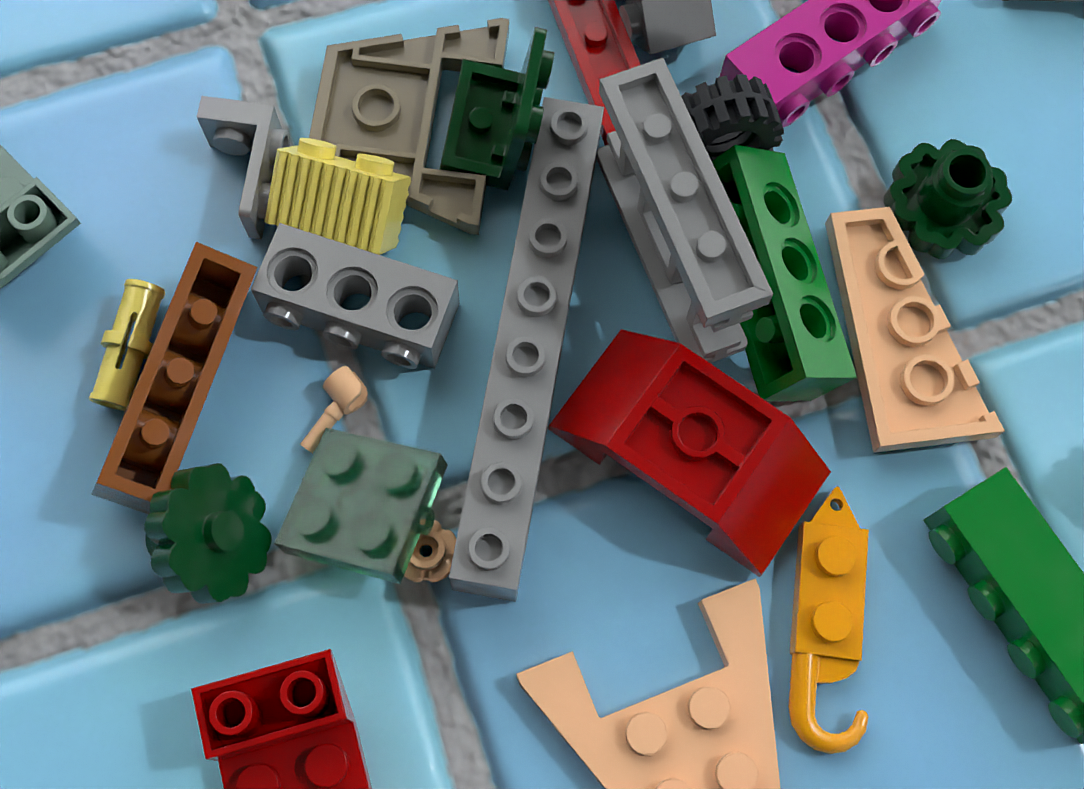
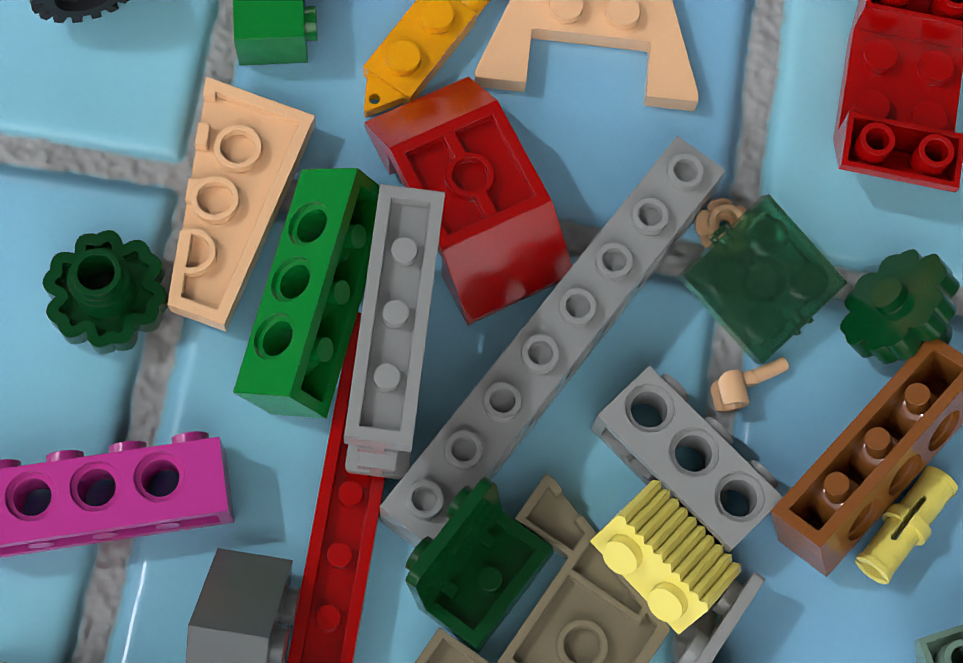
camera: 155 degrees left, 0 degrees up
(734, 114) = (280, 431): black tyre -> none

